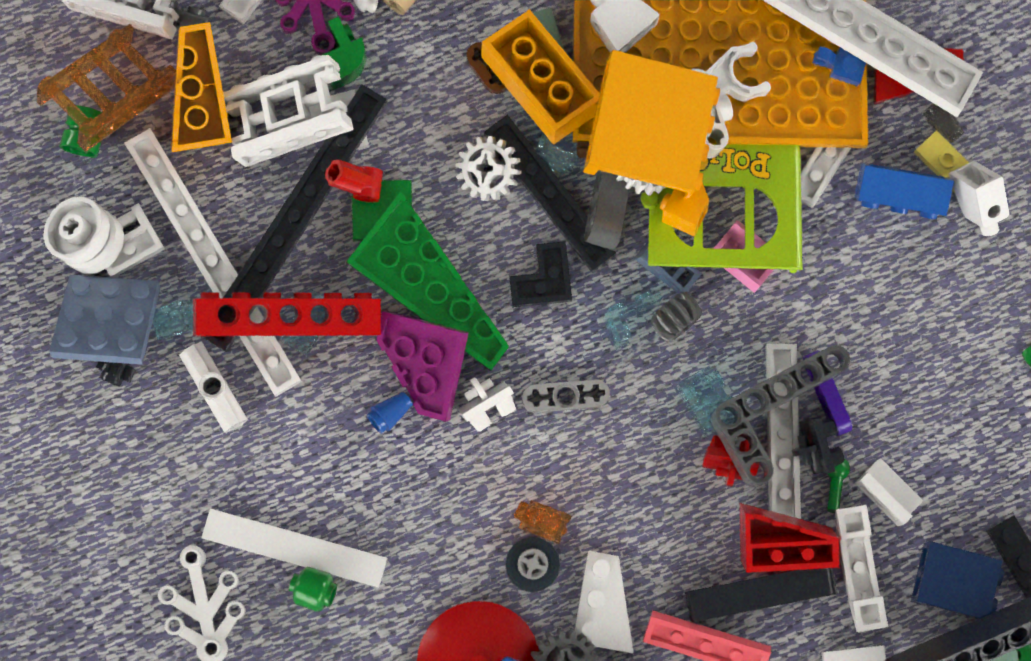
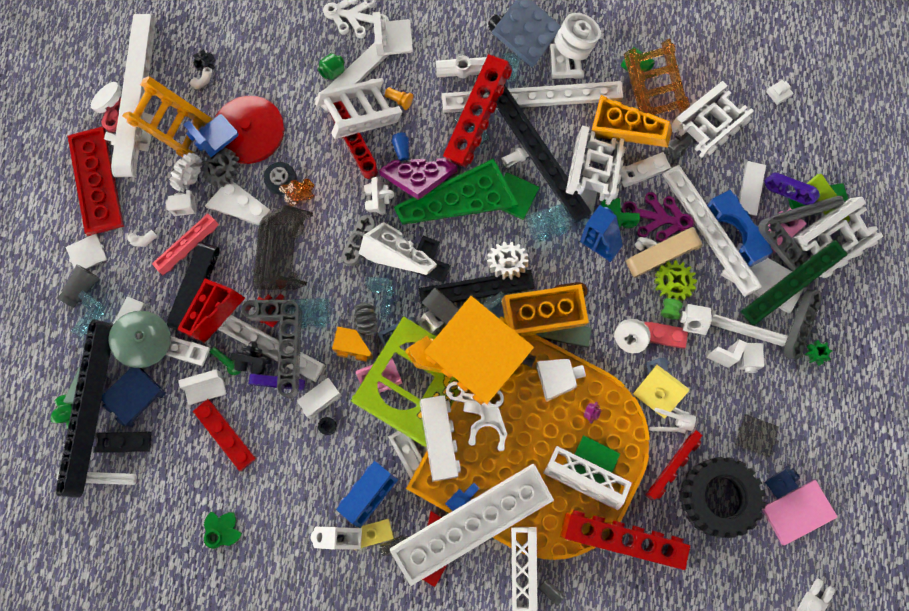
camera: 130 degrees right, 5 degrees down
(215, 518) = (392, 36): none -> white bracket
(247, 48) = (644, 169): none -> white plate
(311, 458) = (402, 98): none -> light orange pin
(319, 235) = (519, 155): none -> white pin
(361, 181) = (534, 185): red piece -> none
(370, 470) = (357, 122): none -> white fence
(386, 59) = (603, 233): none -> blue wedge
(409, 157) = (555, 216): none -> clear light blue brick
(416, 474) = (356, 146): none -> red beam
(559, 333) = (387, 247): none -> white wedge
(635, 229) = (430, 323): none -> white tile
(652, 502) = (276, 249): none -> clear smoke windscreen
(720, 323) = (350, 343): none -> light orange slope
(784, 130) = (439, 438): none -> white brick
(815, 323) = (319, 398): none -> white panel
(836, 291) = (331, 421): none -> black bush
(878, 634) = (143, 351): none -> sand green dish
(933, 426) = (224, 435): none -> red plate

